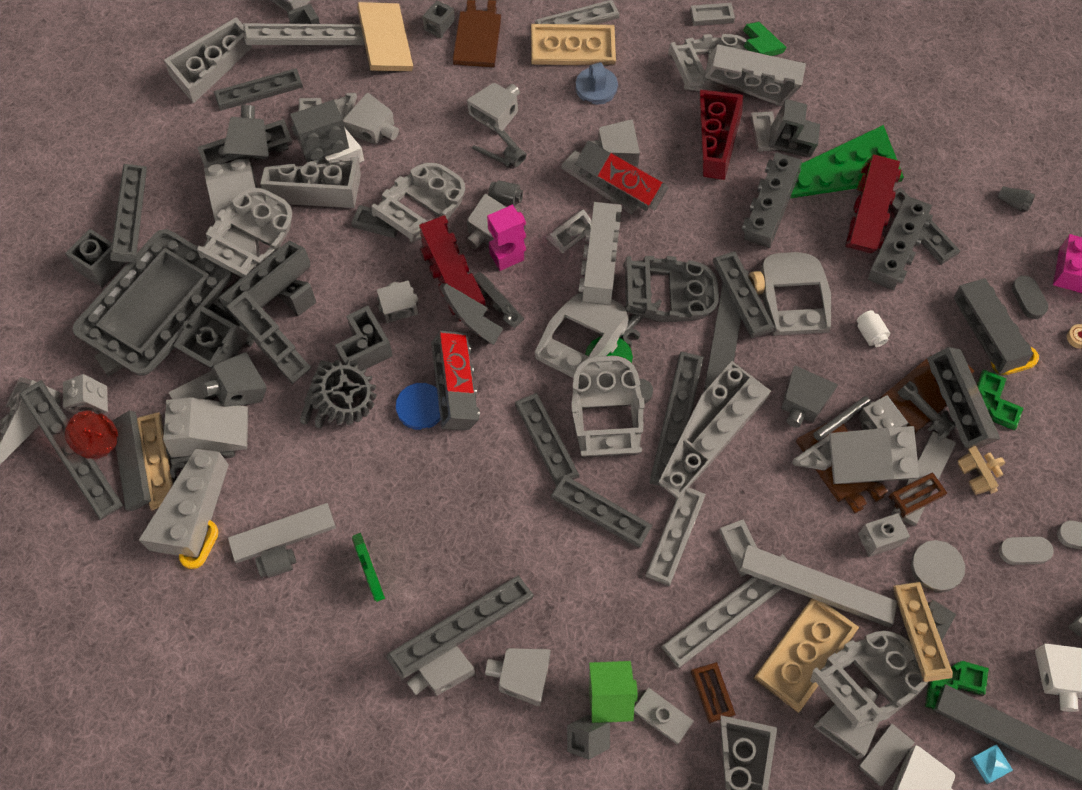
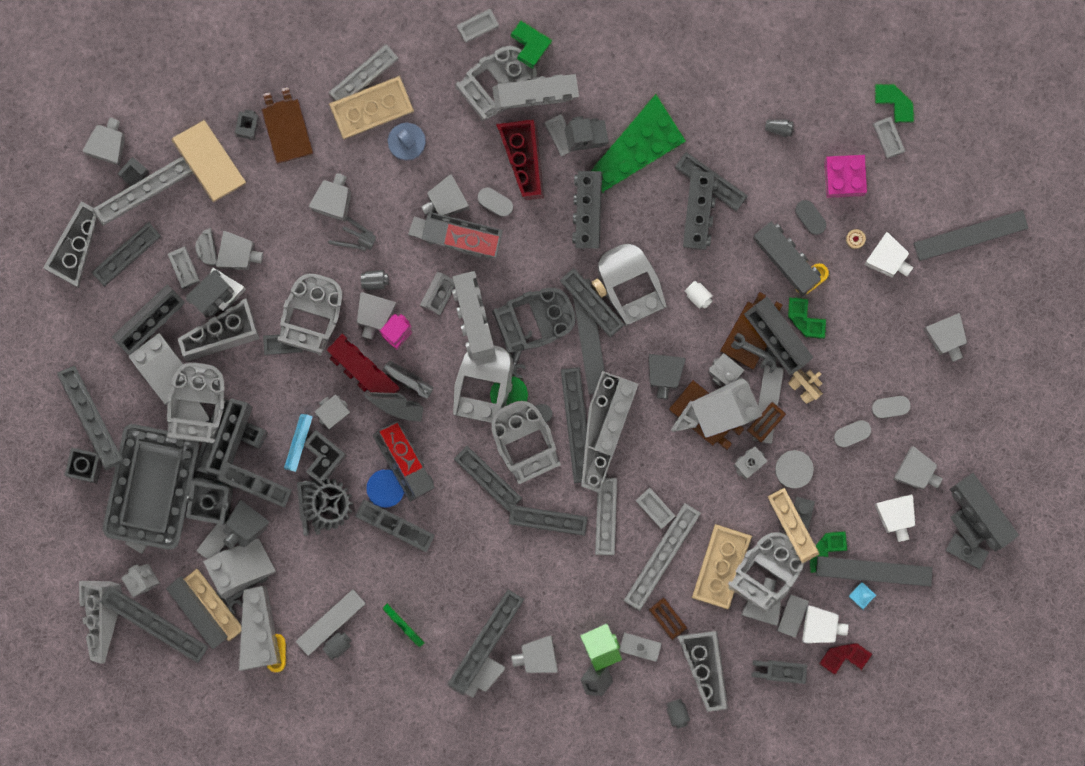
camera: 20 degrees left, 20 degrees up
(91, 434) = (162, 608): clear red tile -> none
(246, 136) = (153, 320): dark grey torso -> none
(342, 320) = (297, 443): none -> medium azure tile
(412, 449) = (394, 525): none -> dark grey slope
(669, 167) = (495, 202): none -> light grey tile
(818, 586) = (715, 518): light grey tile -> none
(841, 418) = (696, 381): dark grey bar -> none
(873, 203) = (667, 185): dark red wedge -> none

